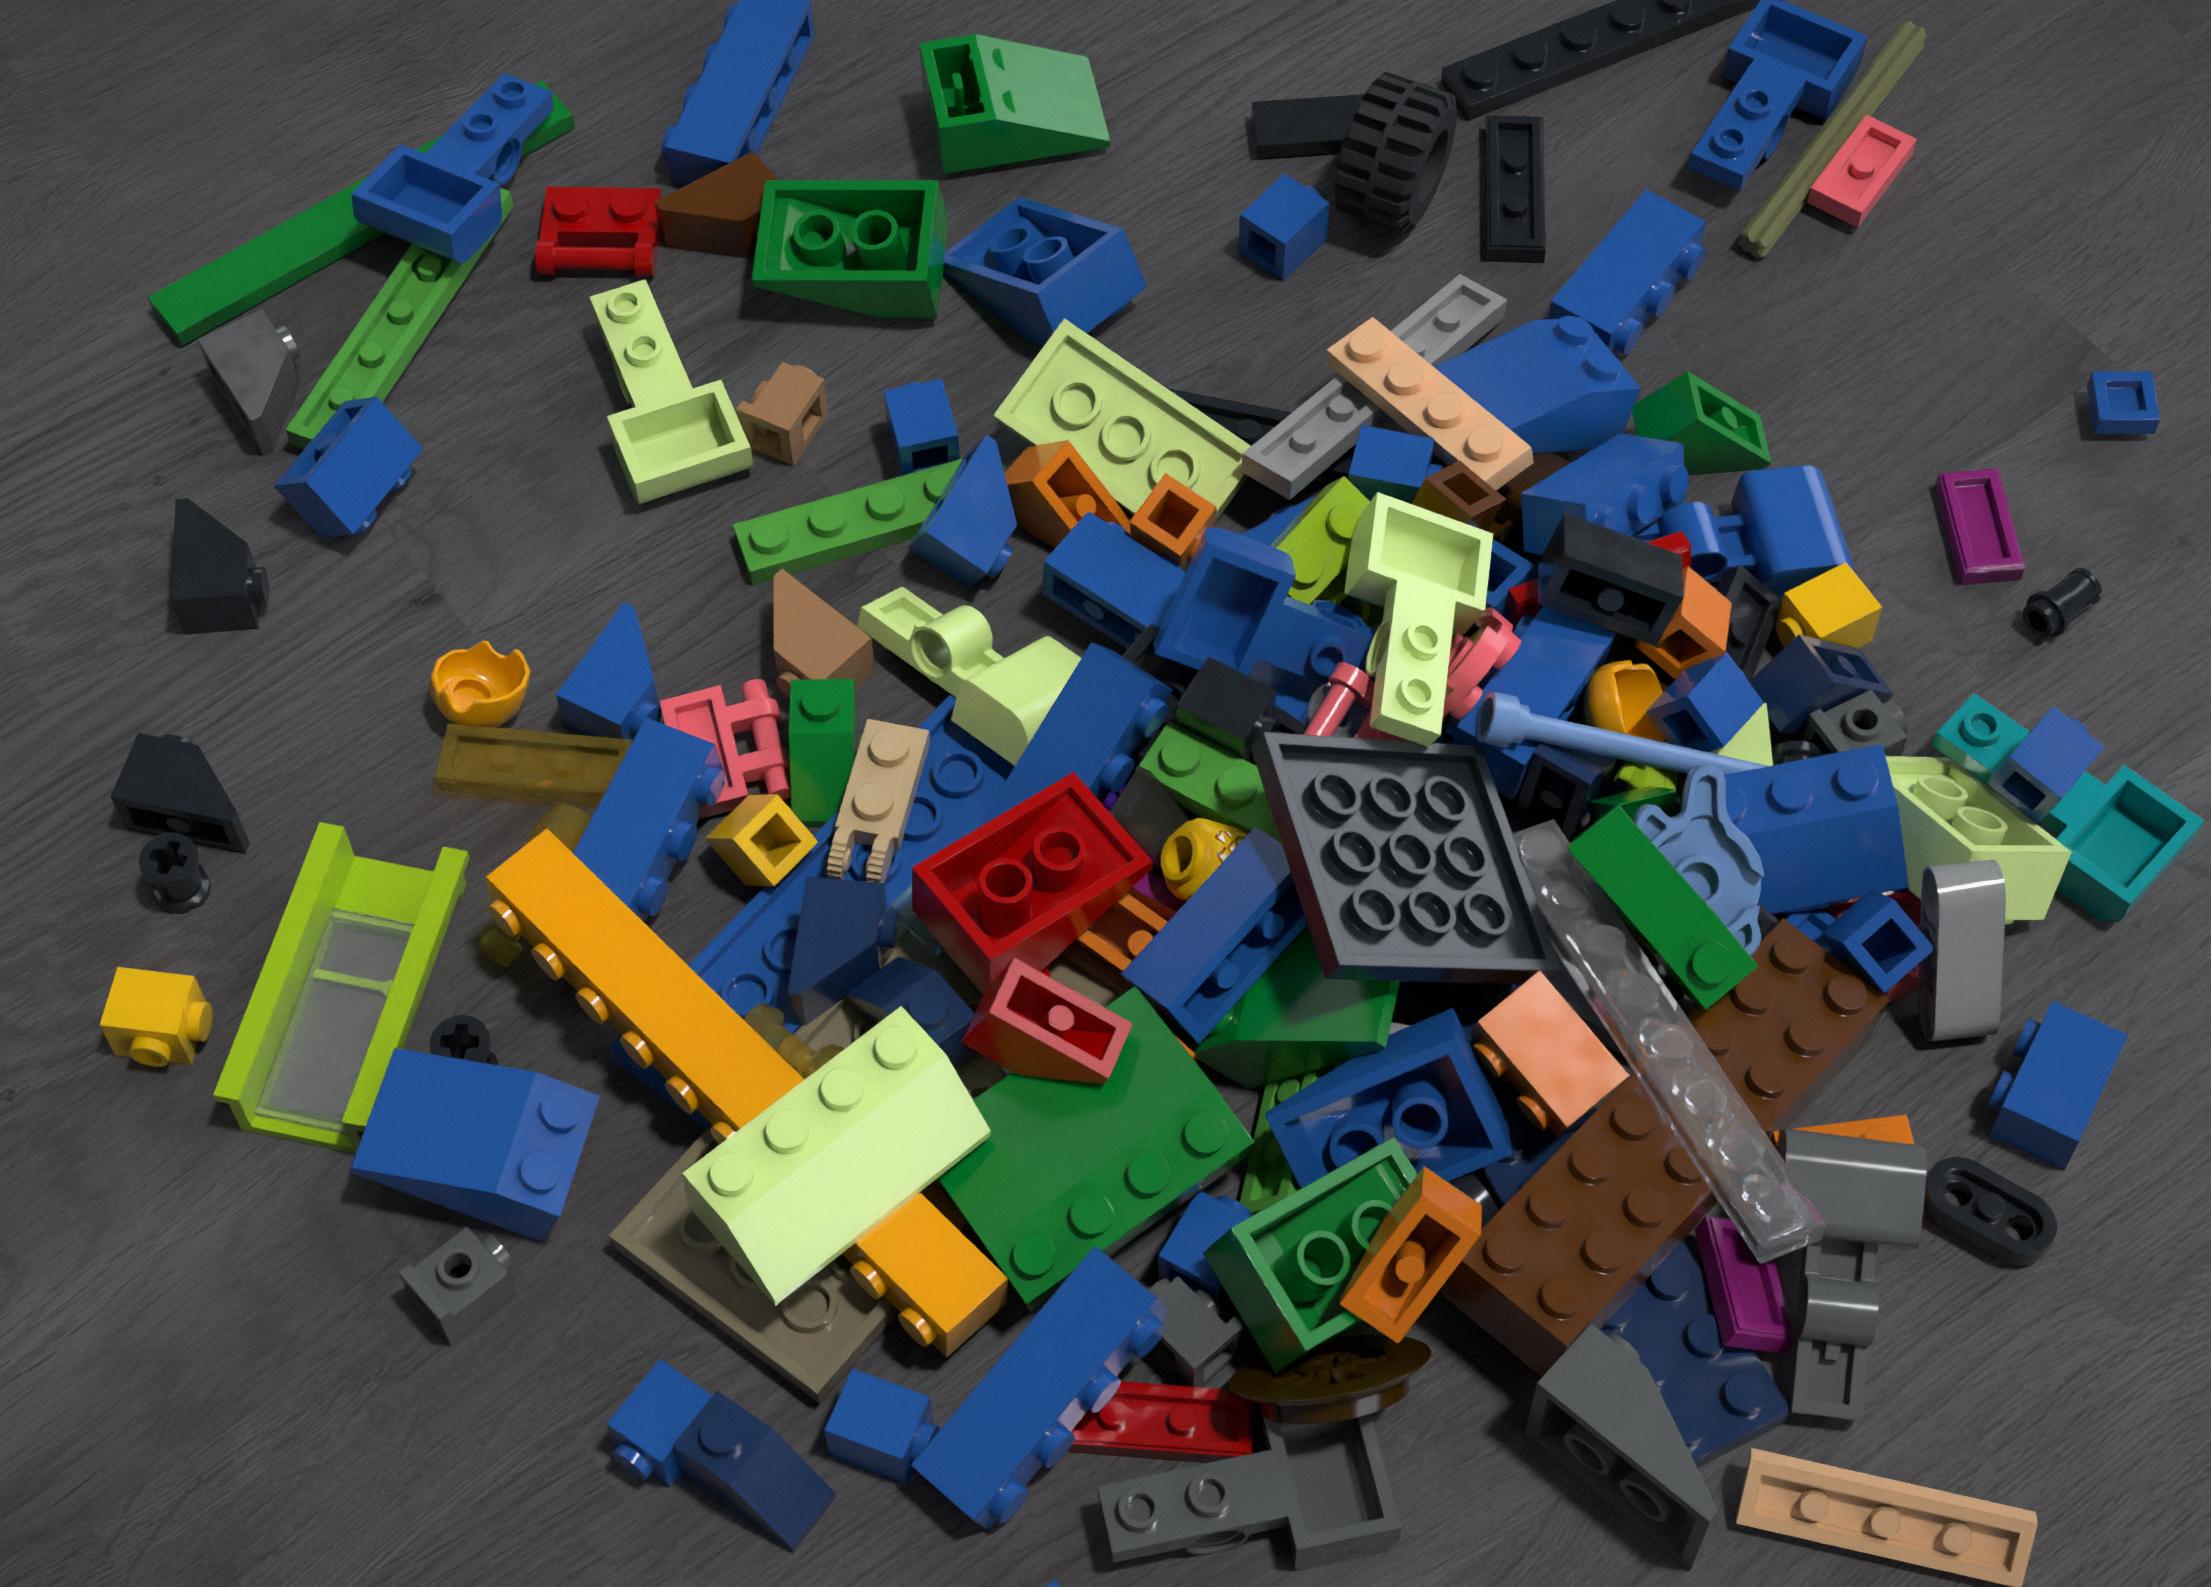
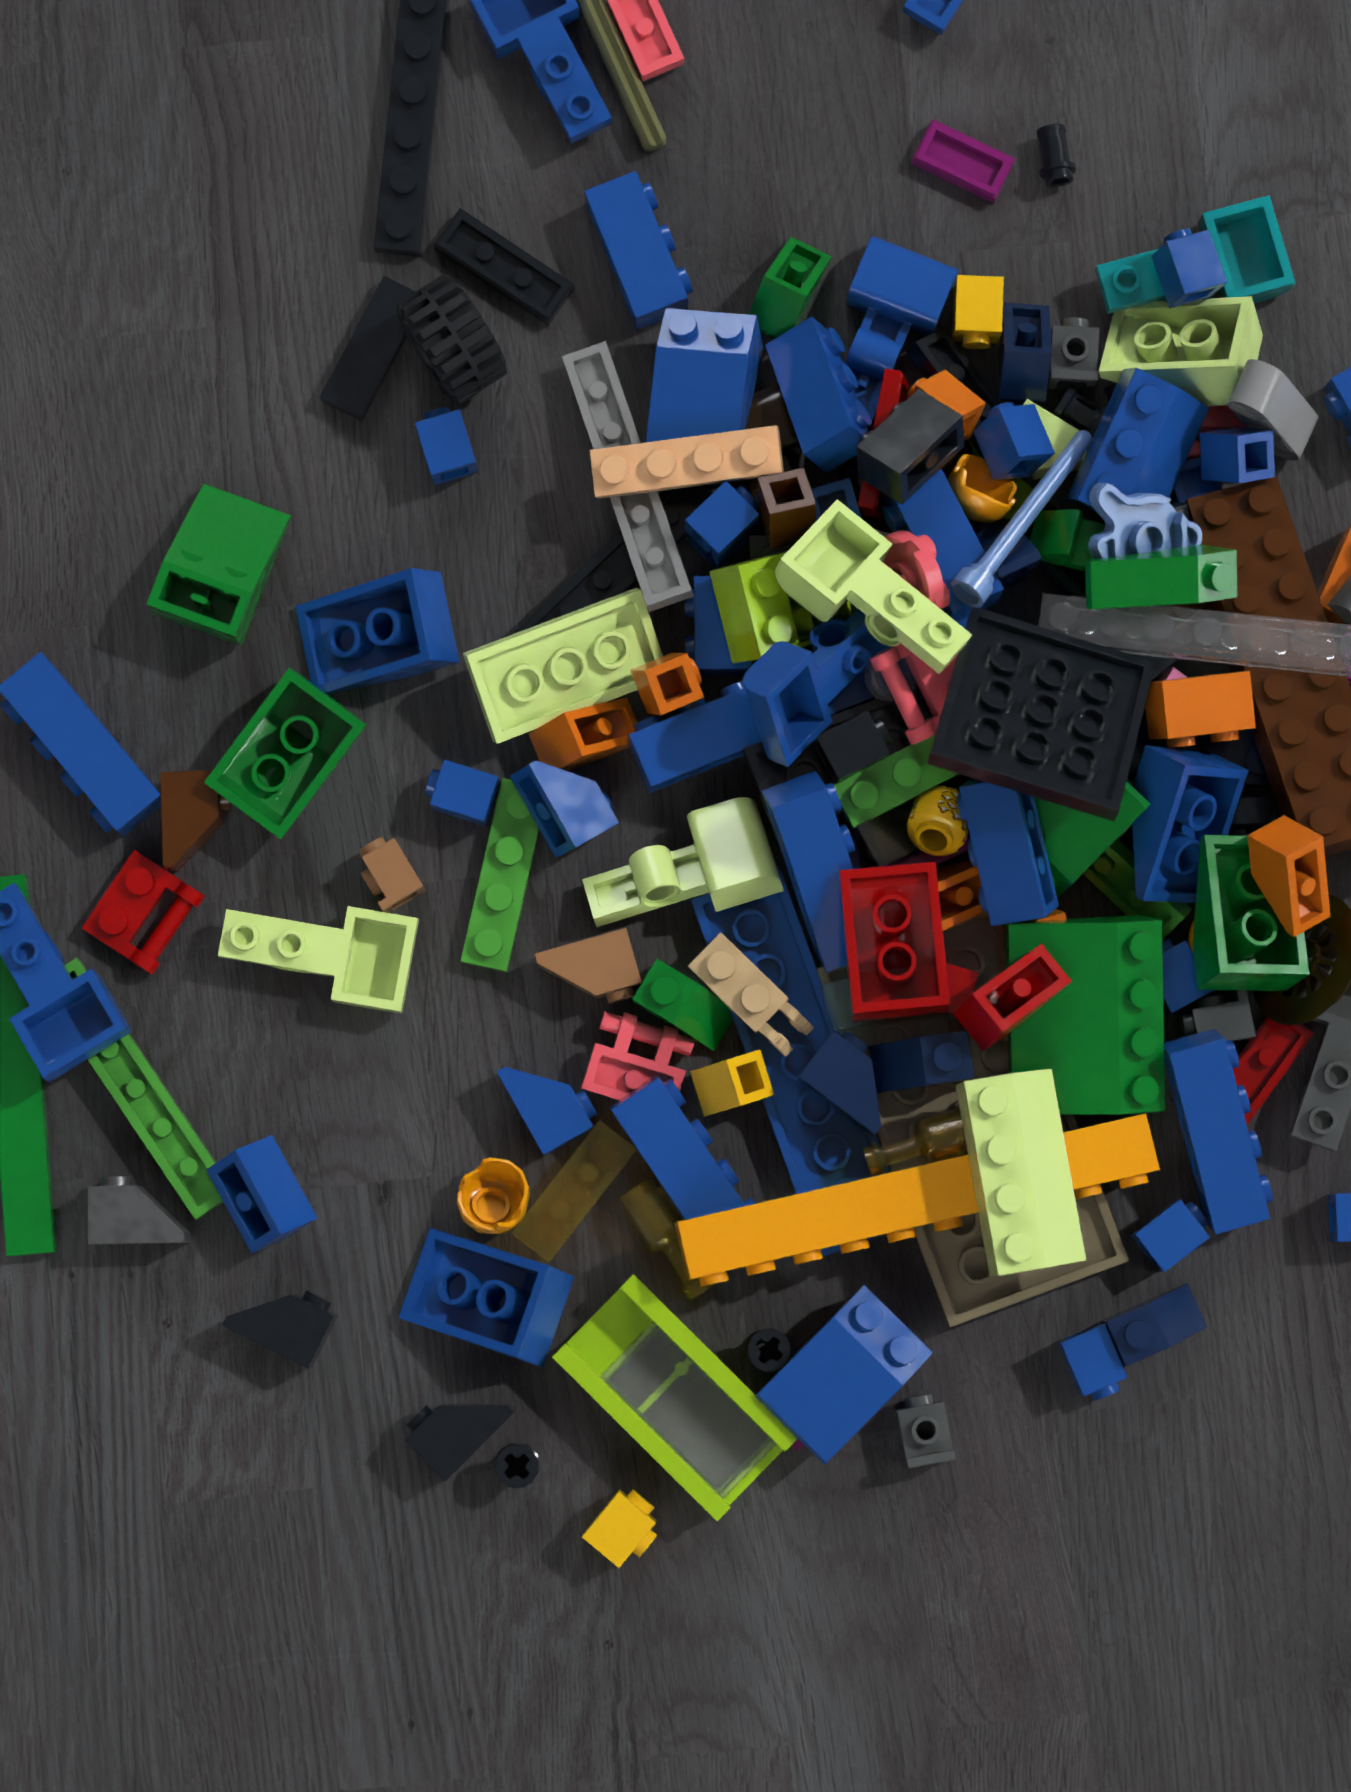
camera: 60 degrees left, 25 degrees up
(359, 746) = (486, 1297): none -> blue slope

